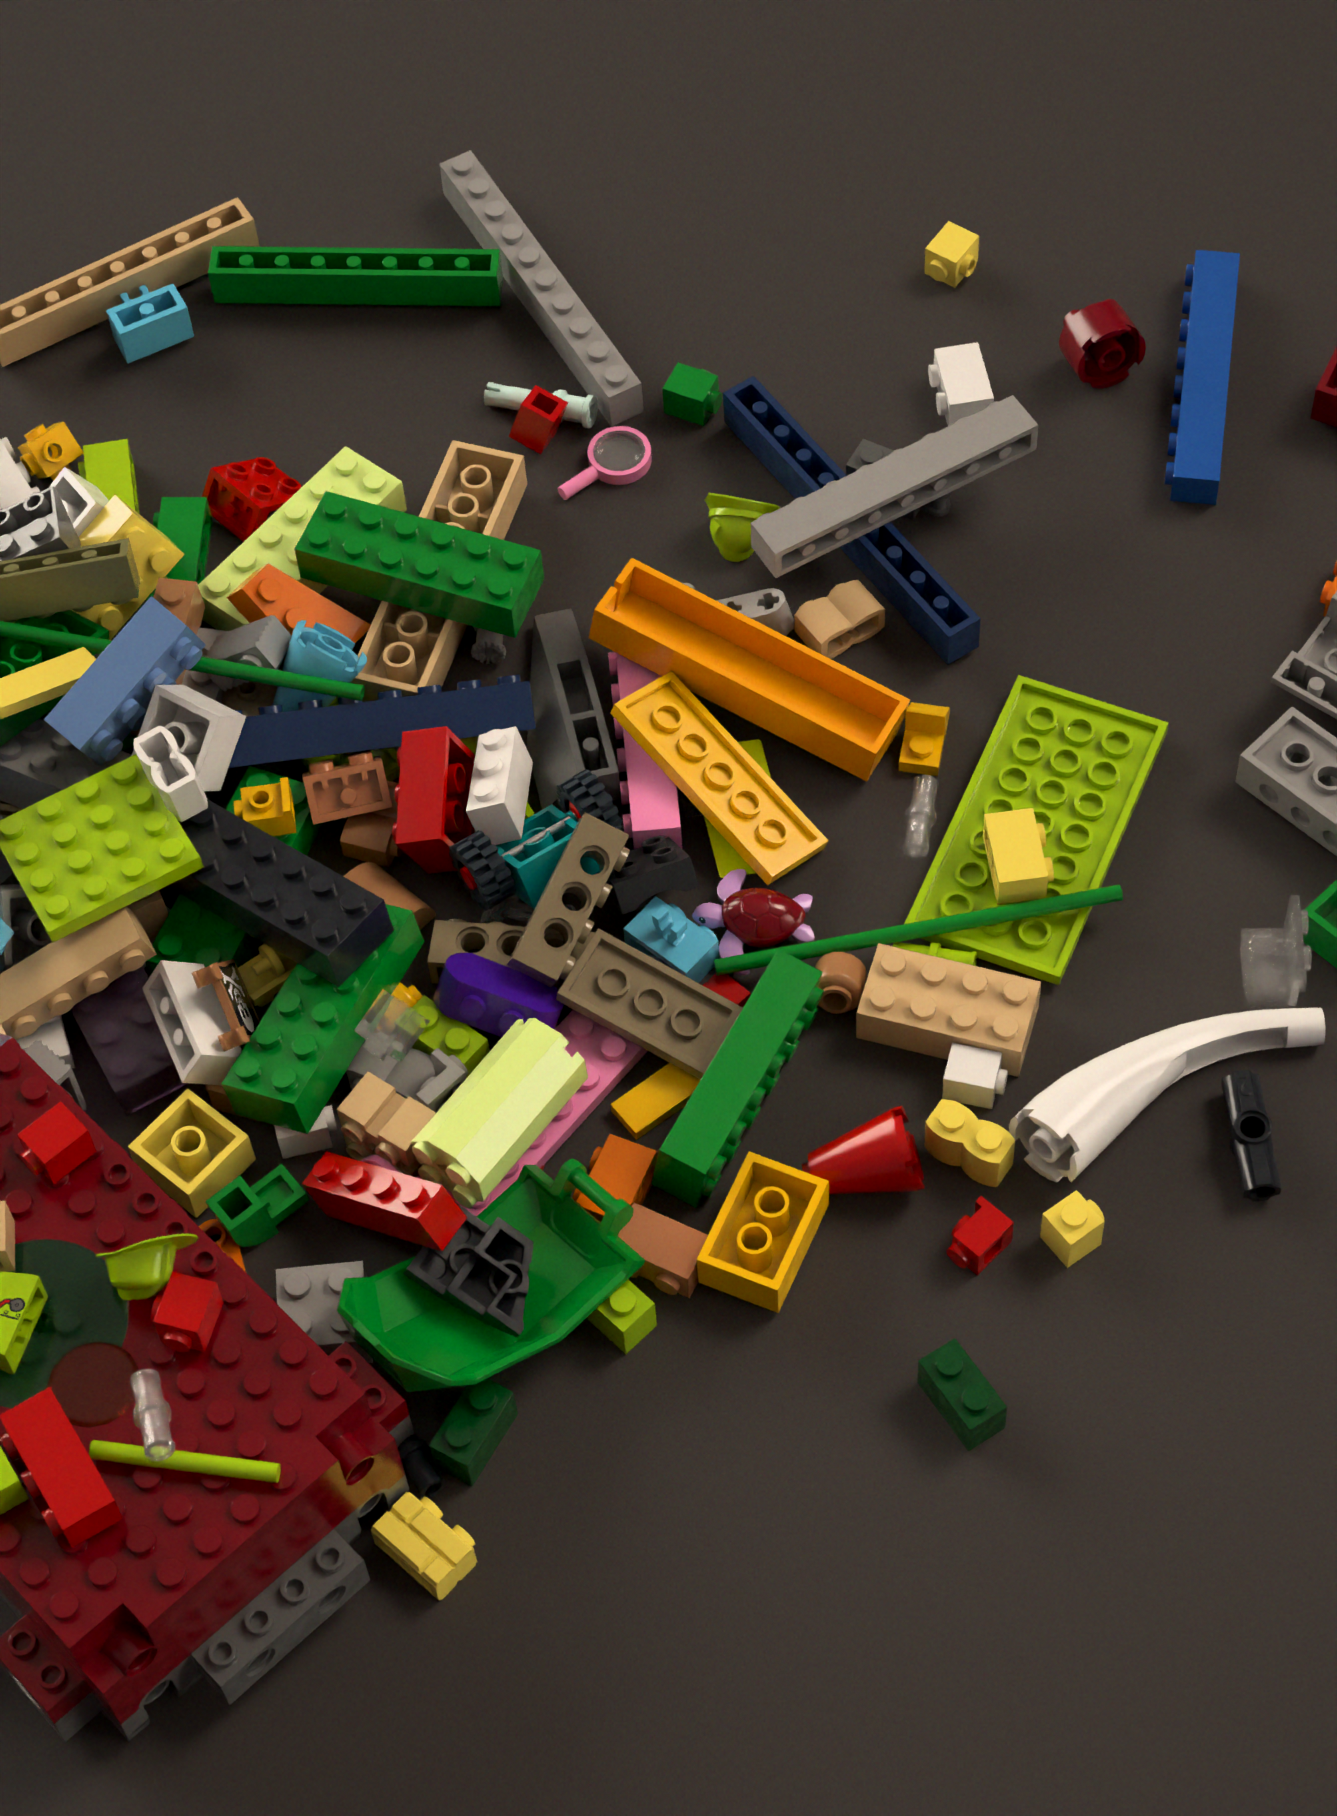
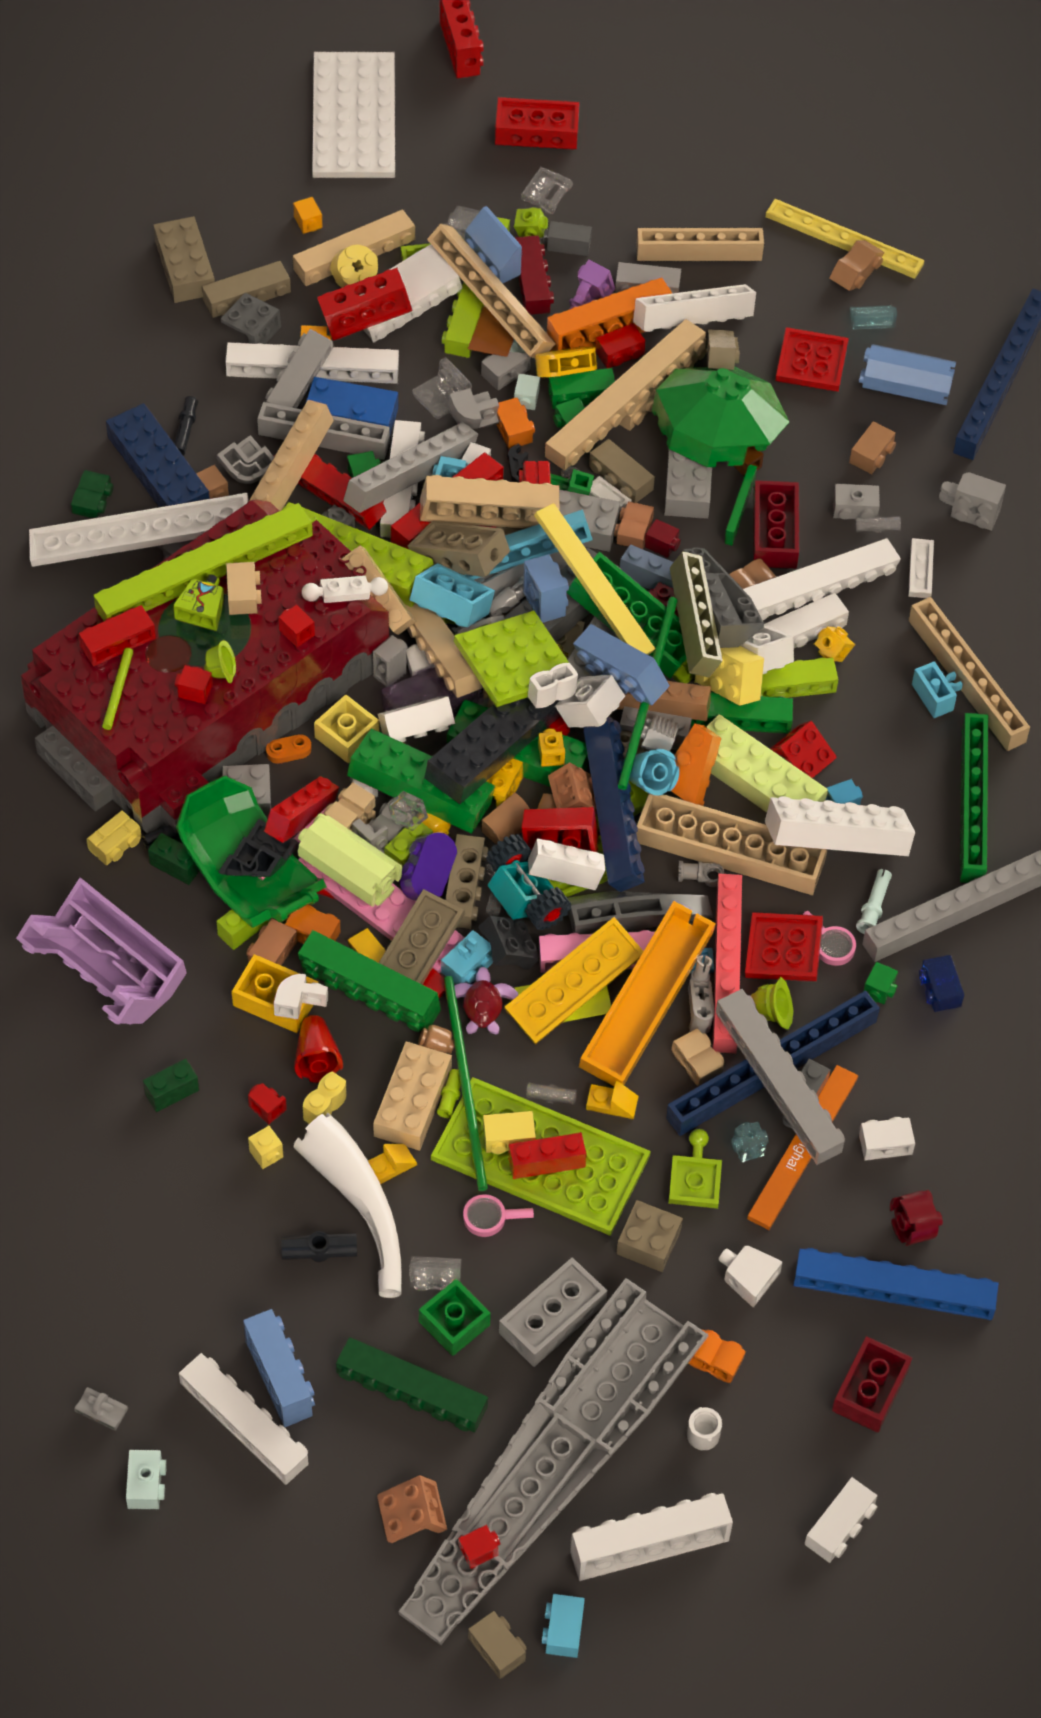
camera: 85 degrees right, 0 degrees up
(152, 1415) = (140, 671): clear pin -> none
(233, 999) = (426, 736): flag -> none
(254, 1211) = (309, 756): green brick -> none
(349, 431) = (844, 793): none -> dark azure brick
(420, 564) = (722, 820): green brick -> none
(425, 422) = (839, 826): none -> white brick
(532, 953) = (448, 876): dark tan brick -> none
(538, 419) = (854, 895): red brick -> none
(584, 579) = (726, 953): none -> coral brick
(631, 510) = (784, 946): none -> red plate
(687, 320) = (941, 983): none -> clear blue brick
(712, 1503) = (131, 970): none -> lavender wedge
(790, 1178) = (294, 992): none -> white brick
(952, 254) = (1001, 1140): light yellow brick -> none
(973, 1076) = (367, 1105): white brick -> none
(988, 548) = (749, 1141): none -> clear light blue brick
(1017, 504) = (796, 1156): none -> orange tile
(1053, 620) = (695, 1179): none -> lime plate
(1056, 799) = (547, 1155): none -> red brick
(1070, 1037) = (392, 1162): none -> yellow slope
(1152, 900) = (486, 1215): none -> piece
(1169, 672) = (649, 1236): none -> dark tan brick
(1214, 546) = (750, 1272): none -> white torso

